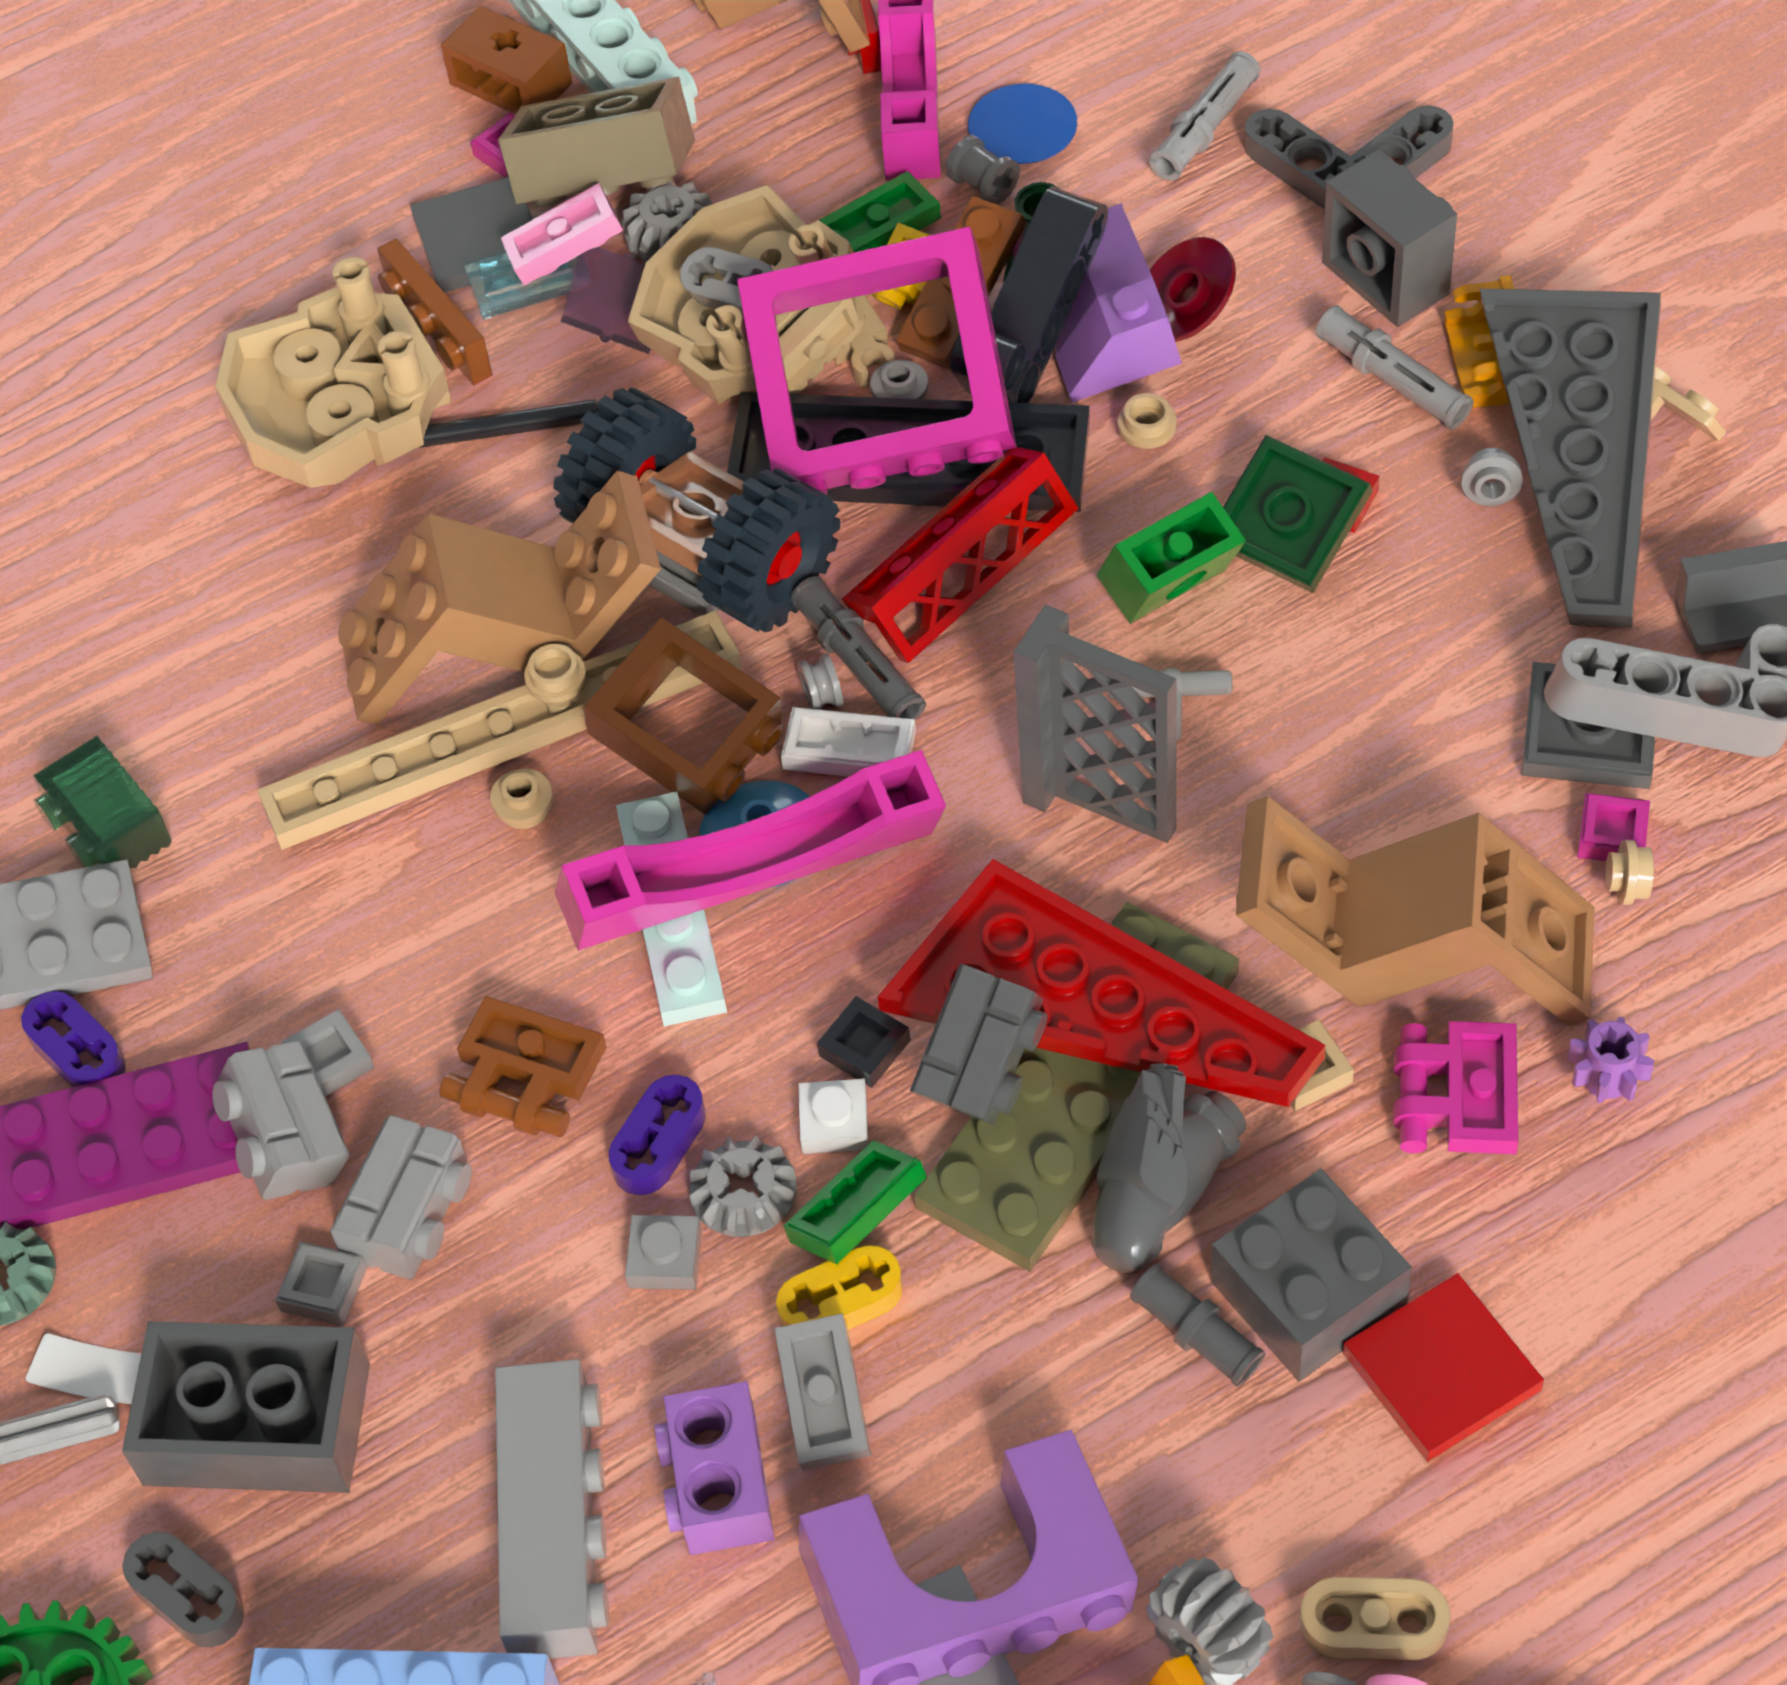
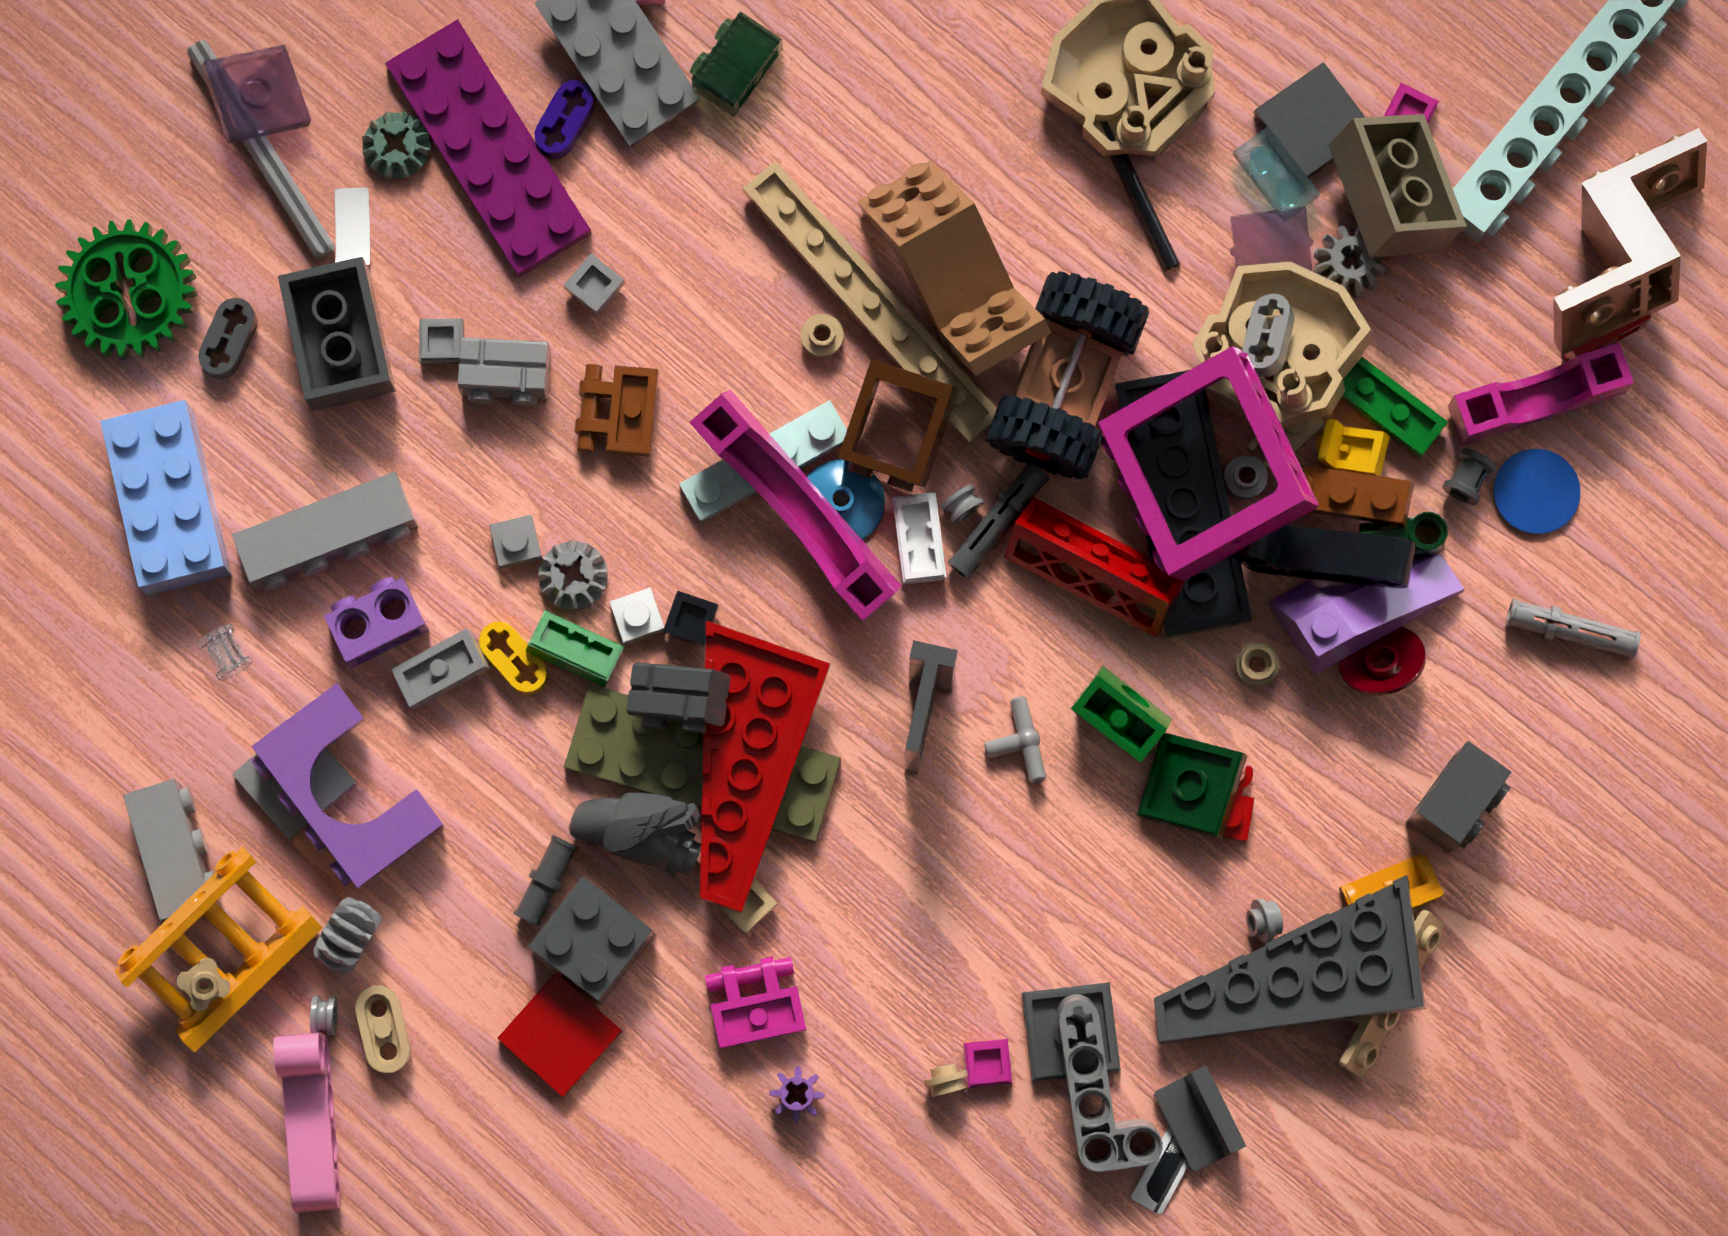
camera: 70 degrees right, 25 degrees up
(279, 1120) = (529, 275): light grey brick -> none
(434, 312) = (1220, 118): dark orange plate -> none
(505, 61) = (1489, 57): dark orange brick -> none
(555, 674) = (910, 326): tan plate -> none
(561, 234) = (1298, 191): bright pink plate -> none
(646, 1128) = (592, 520): dark purple beam -> none
(1302, 143) = (1550, 759): dark grey beam -> none
(1375, 354) = (1354, 827): light grey pin -> none
(1416, 910) = (857, 947): medium nougat bracket -> none

